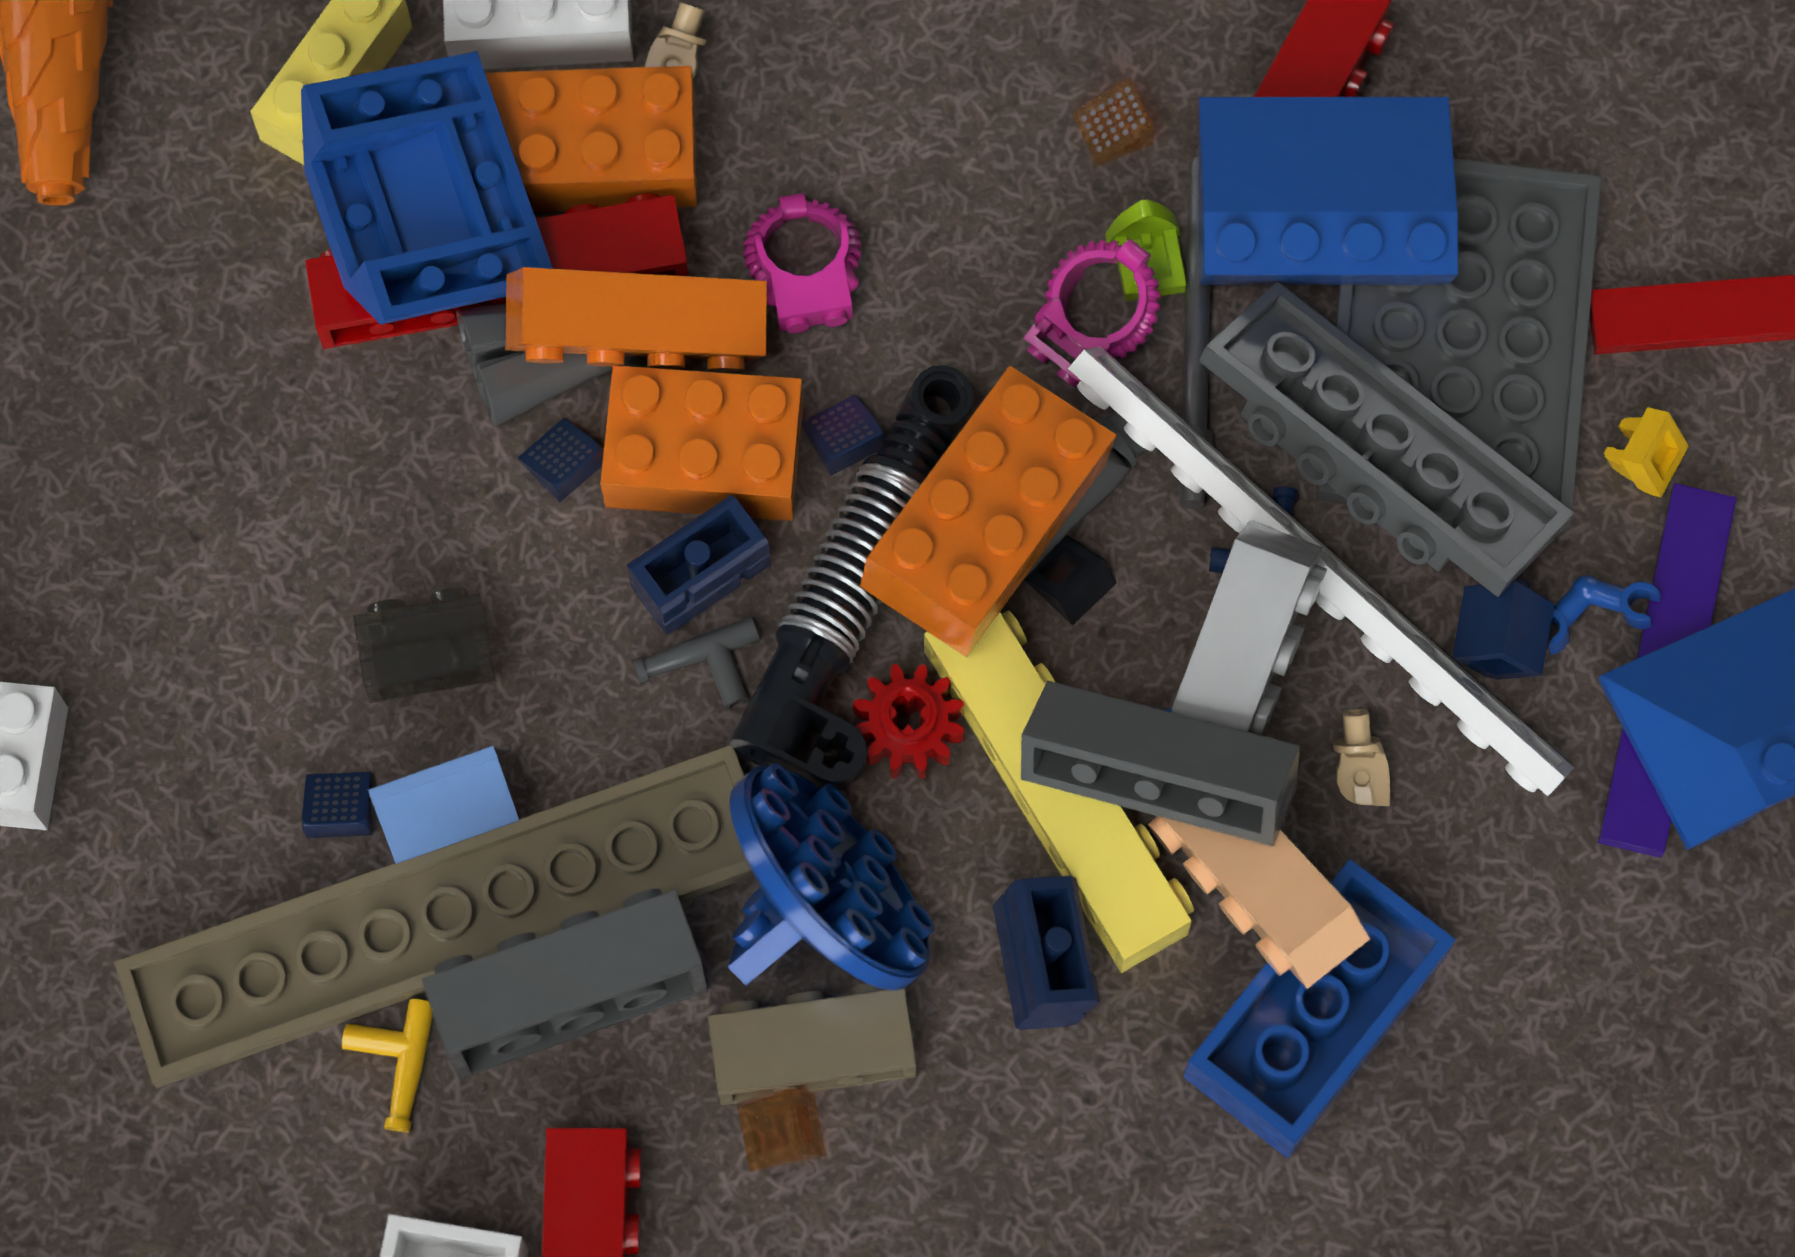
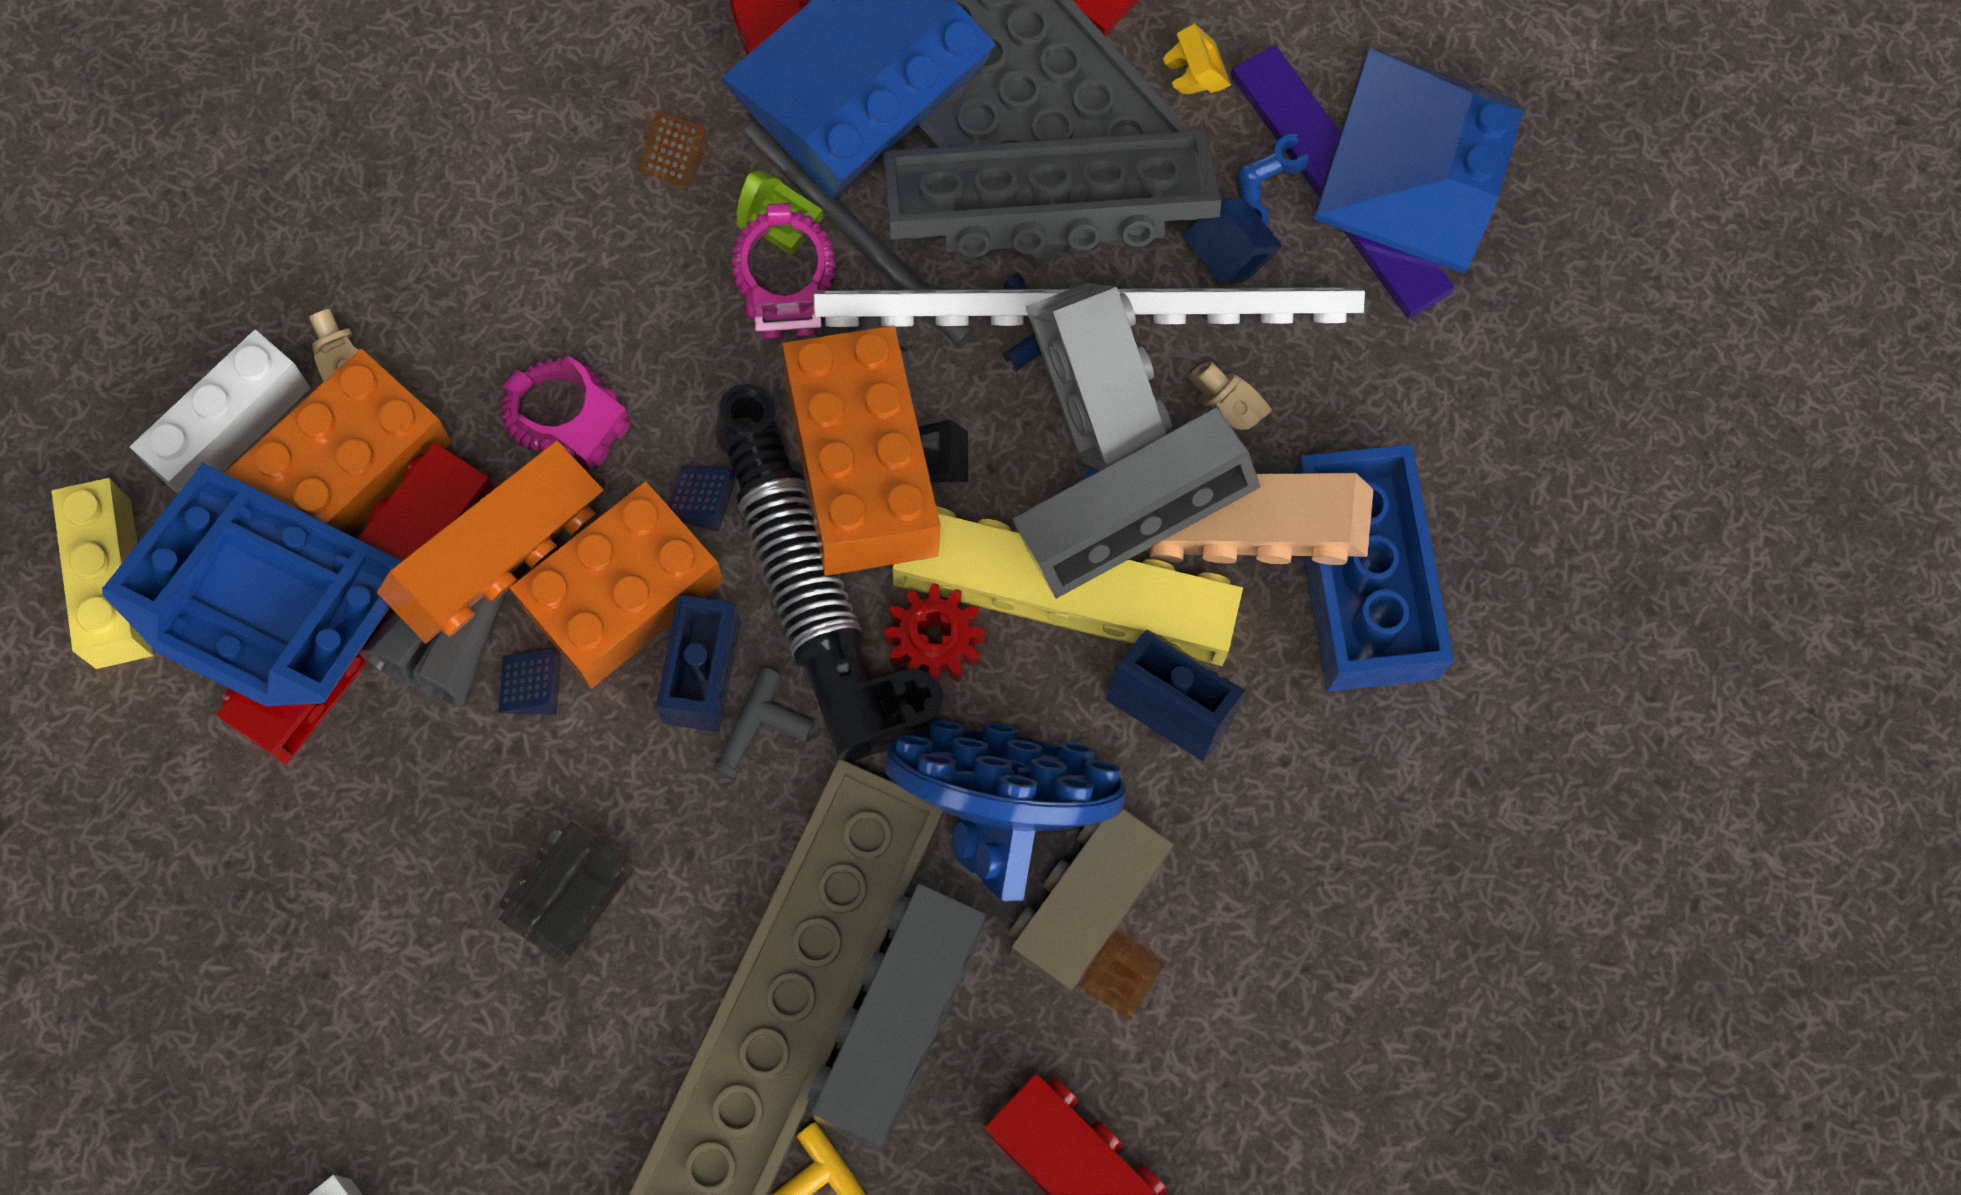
camera: 50 degrees left, 0 degrees up
(337, 805) = (612, 1056): dark blue slope -> none
(444, 804) = (689, 982): medium blue slope -> none

